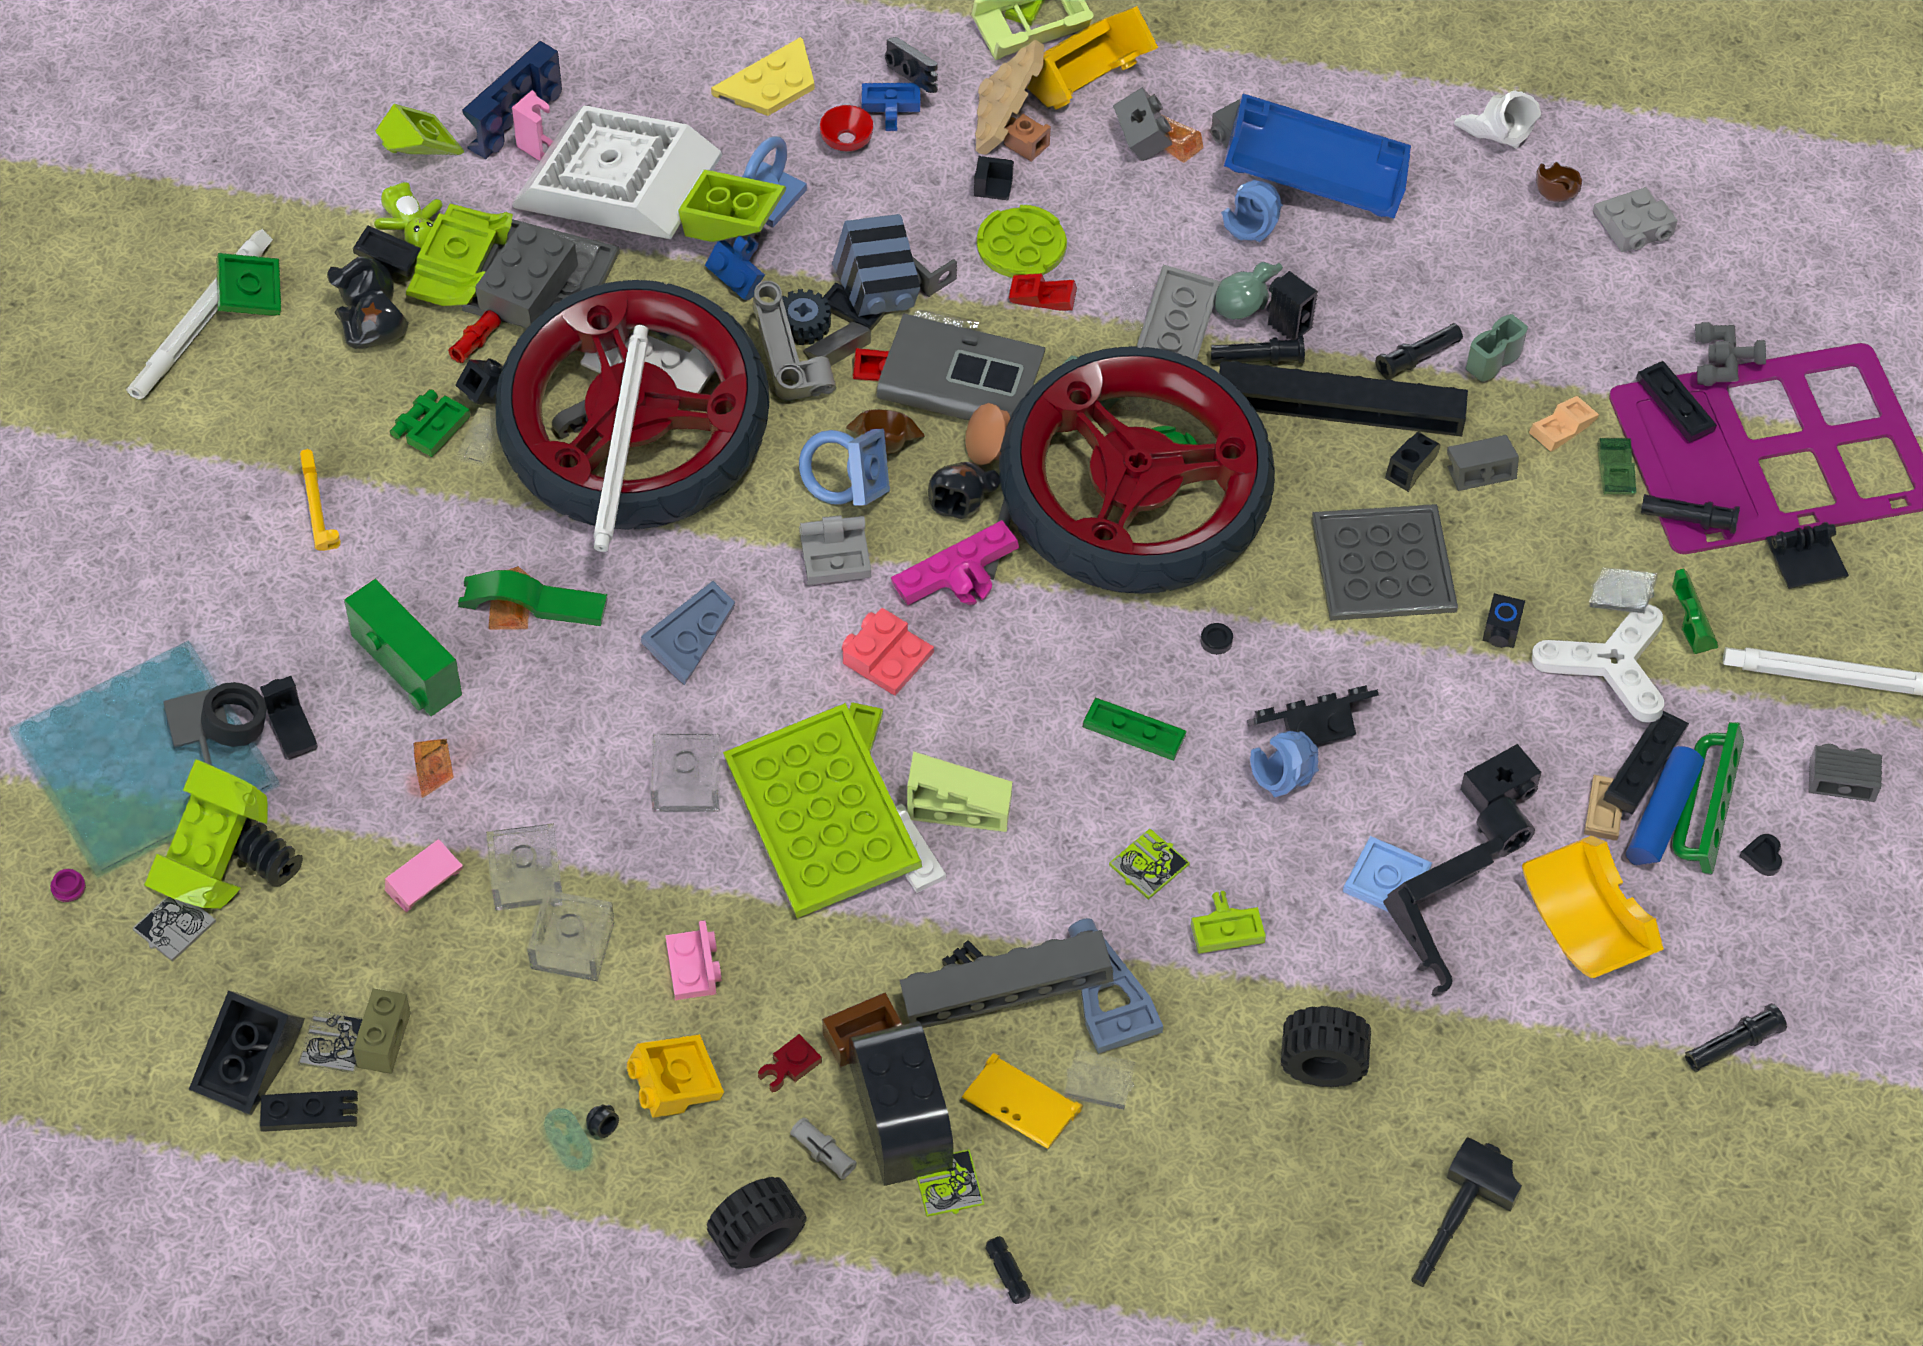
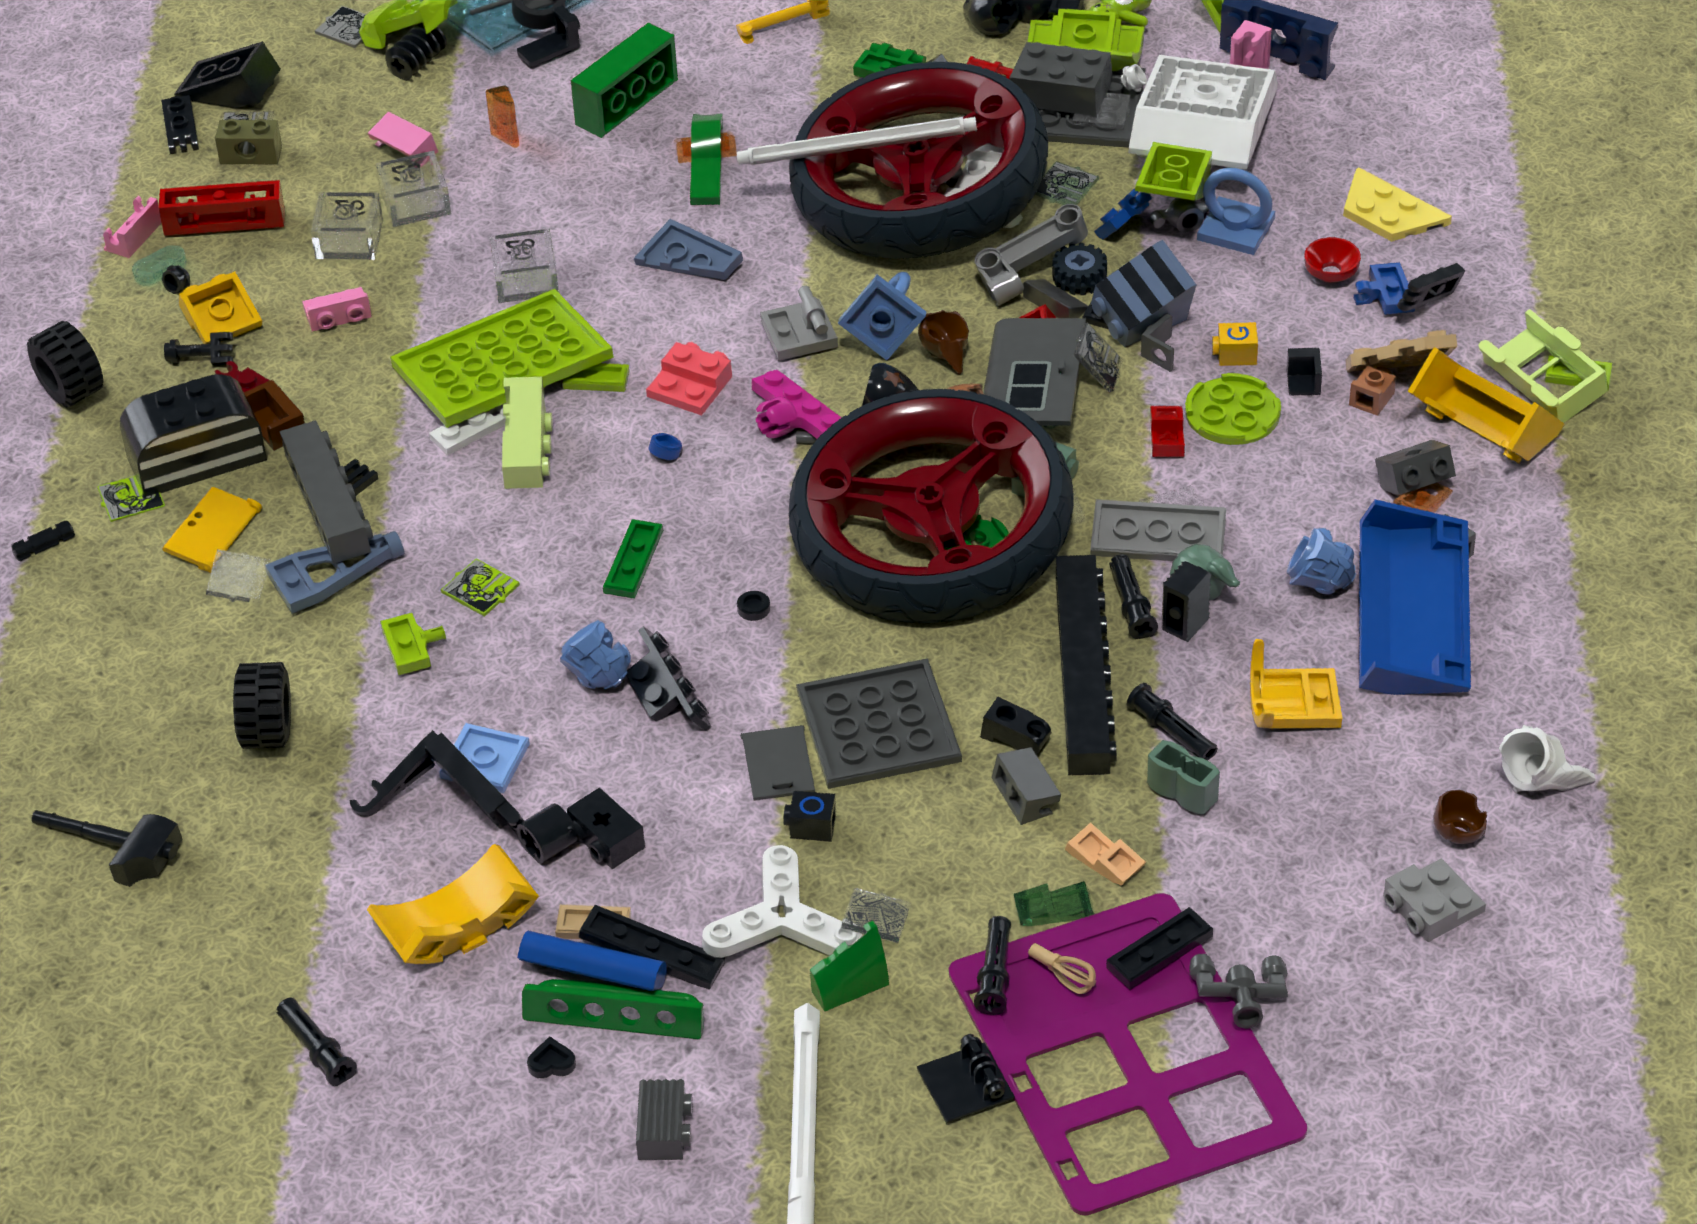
camera: 85 degrees right, 10 degrees down
(498, 1162) = (135, 229): none -> bright pink hinge
(502, 1061) = (221, 208): none -> red brick
(537, 220) = (1133, 78): none -> white plate
(738, 1083) = (174, 350): none -> black hinge
(944, 218) = (1236, 344): none -> yellow brick
(983, 683) = (665, 446): none -> blue tile
(1403, 264) = (1292, 695): none -> yellow piece
(1420, 645) = (778, 760): none -> dark grey container
(1689, 473) = (1058, 965): none -> tan piece

